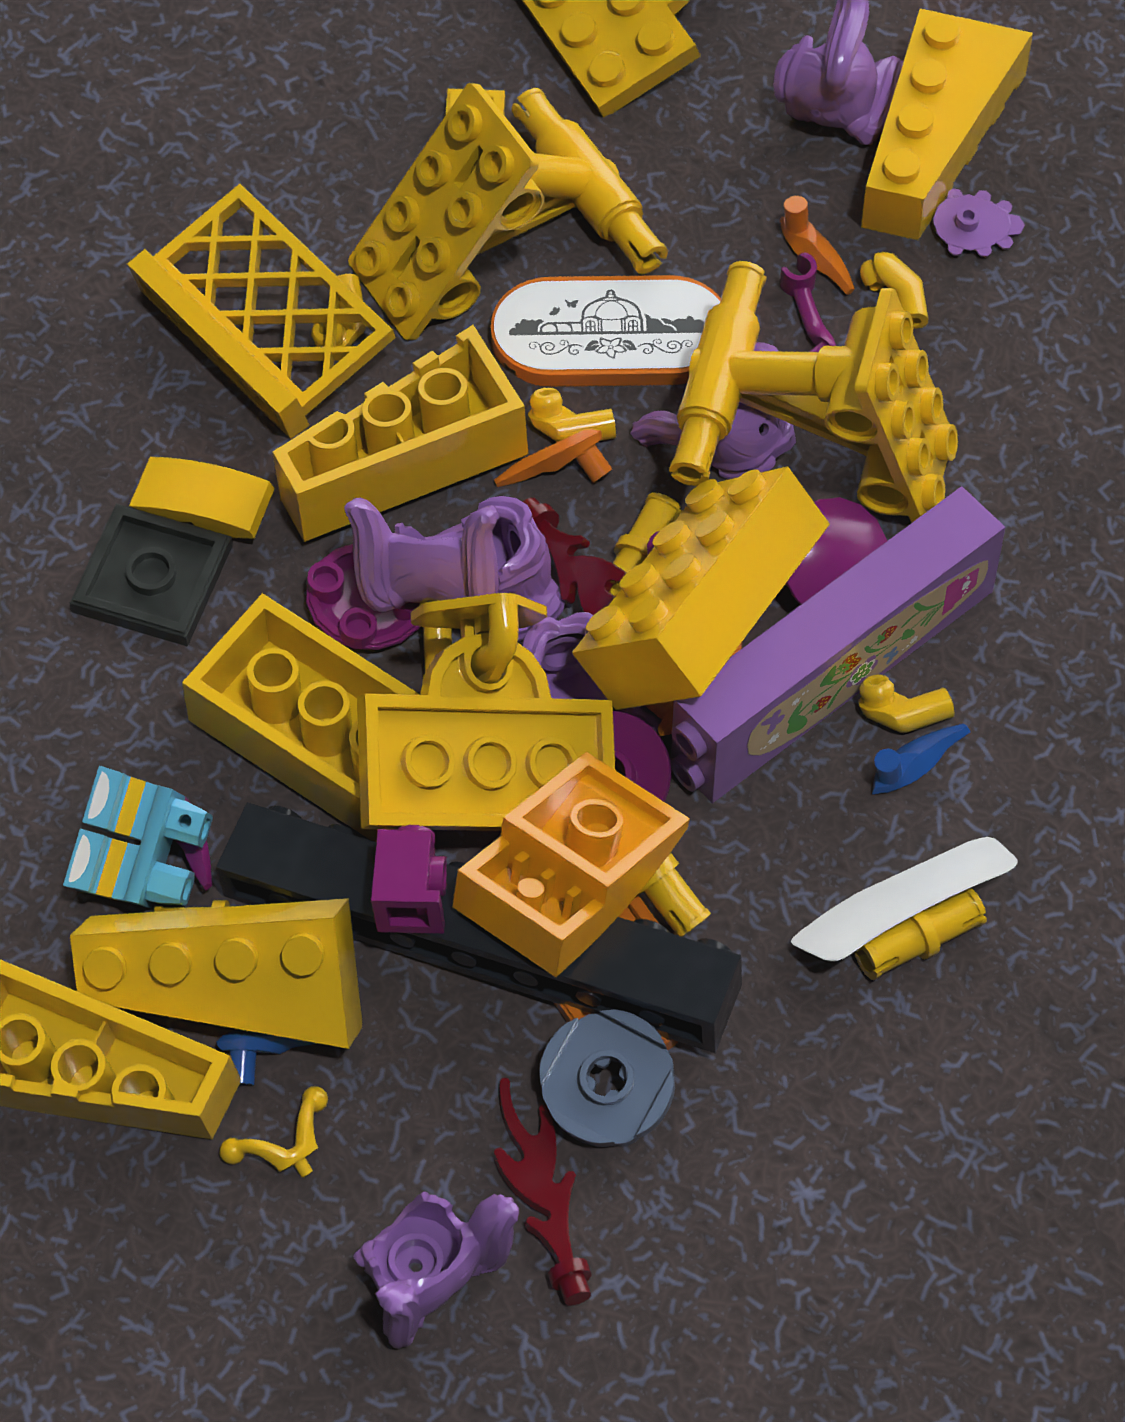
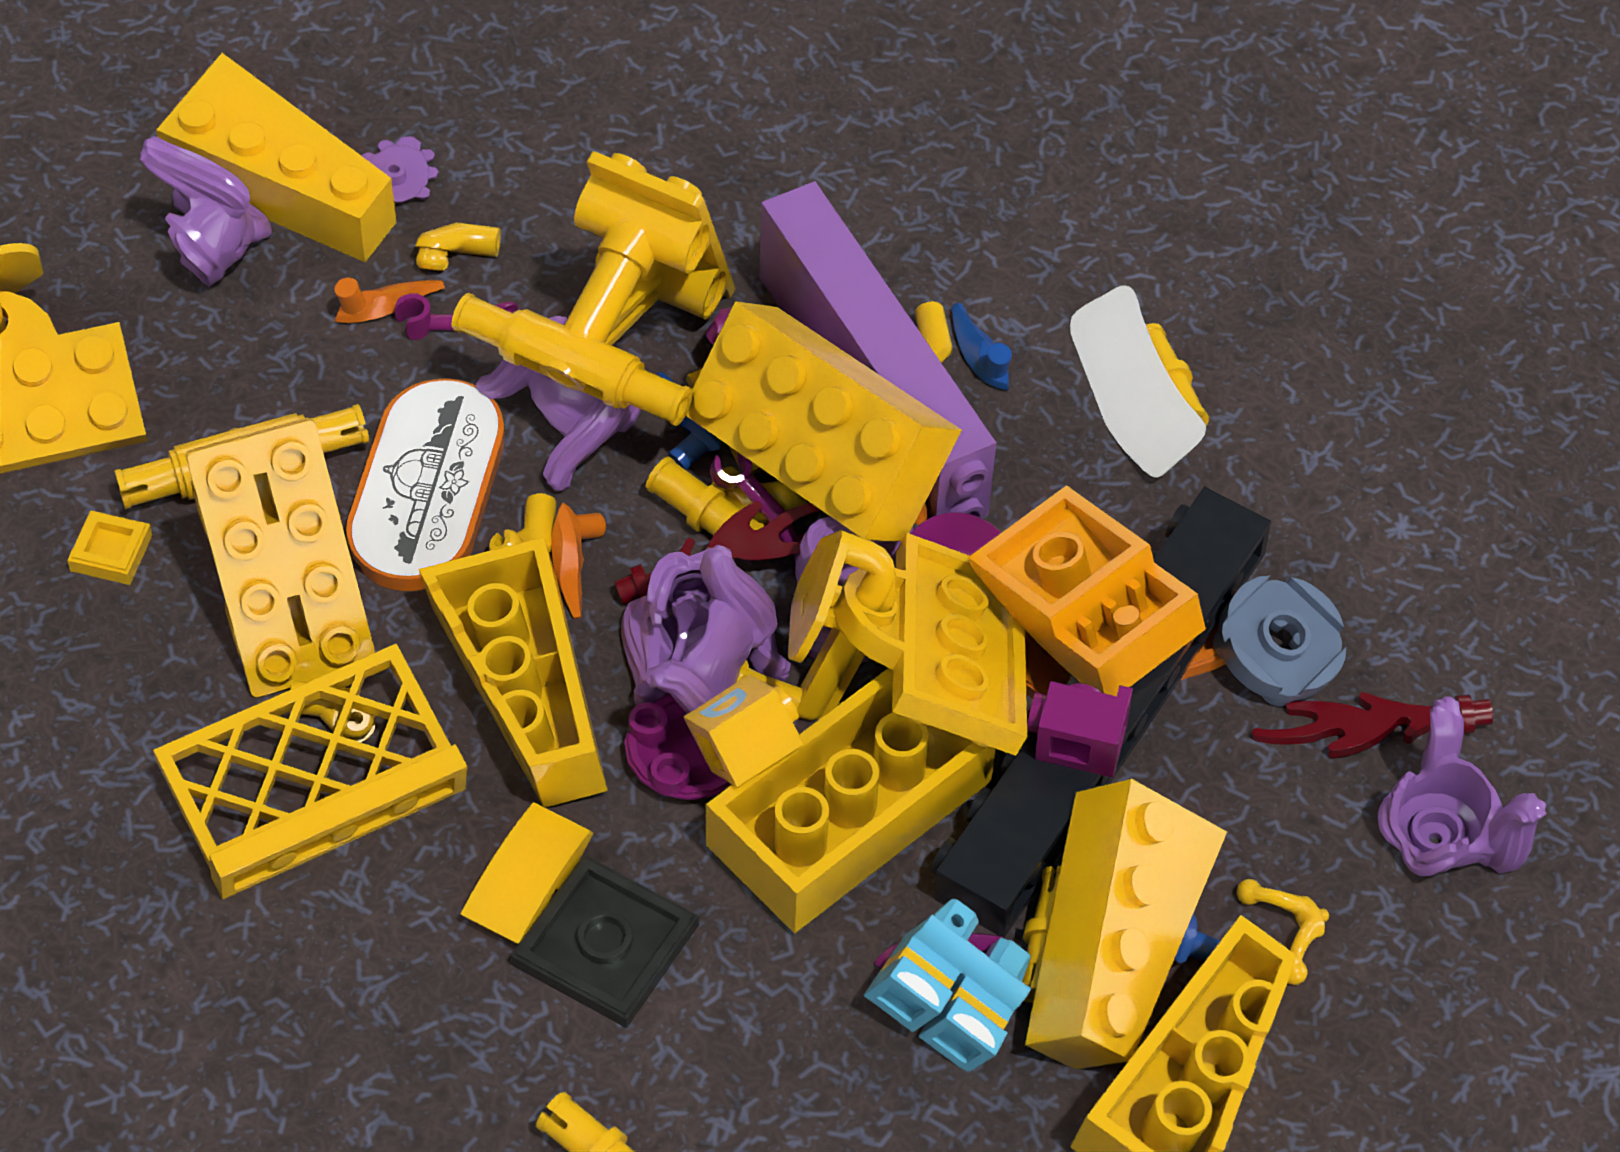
camera: 80 degrees left, 5 degrees down
(338, 600) = (745, 729): none -> yellow brick

